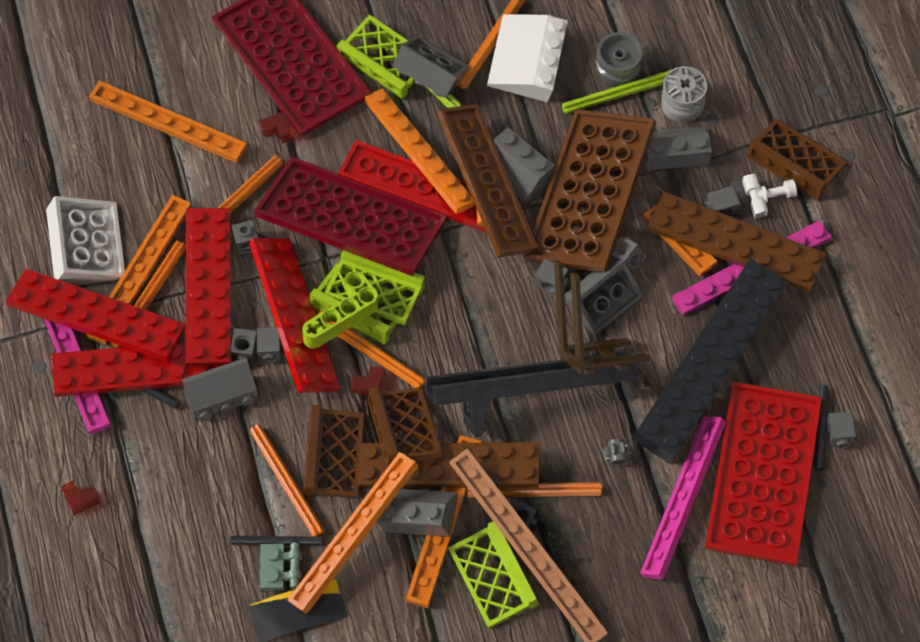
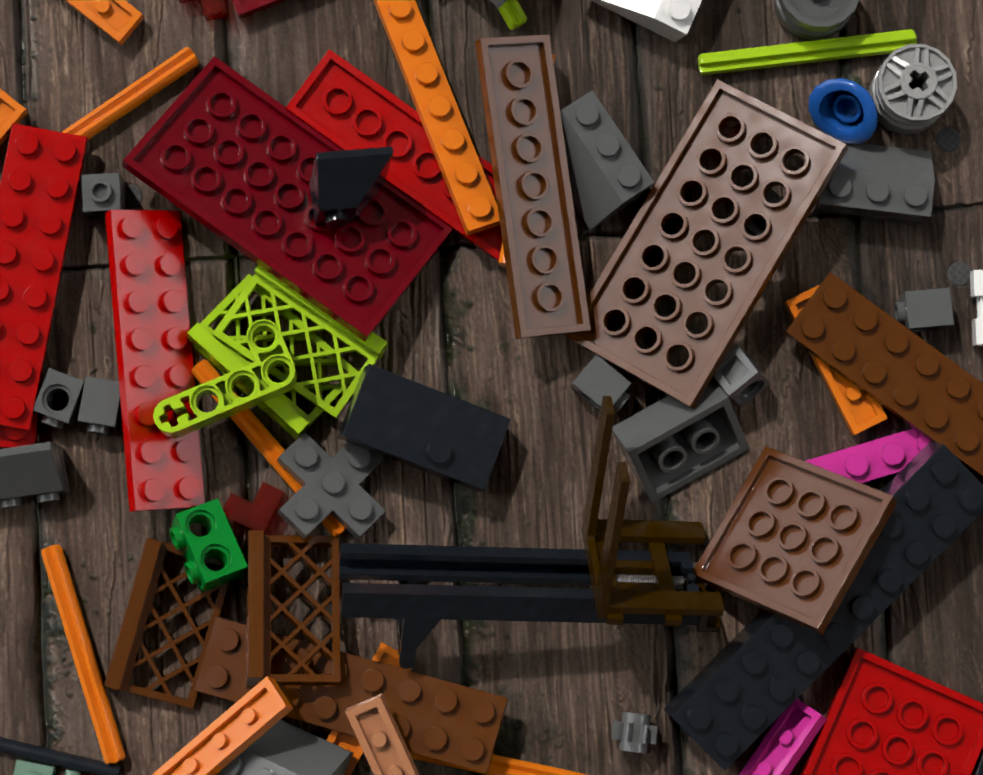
camera: 10 degrees right, 20 degrees up
(348, 402) = (218, 544): none -> green brick
(383, 195) = (346, 183): none -> black slope
(409, 358) = (329, 487): none -> dark grey plate
(456, 316) = (424, 428): none -> black brick
(652, 107) = (843, 110): none -> blue hat
(681, 324) = (794, 539): none -> reddish brown plate

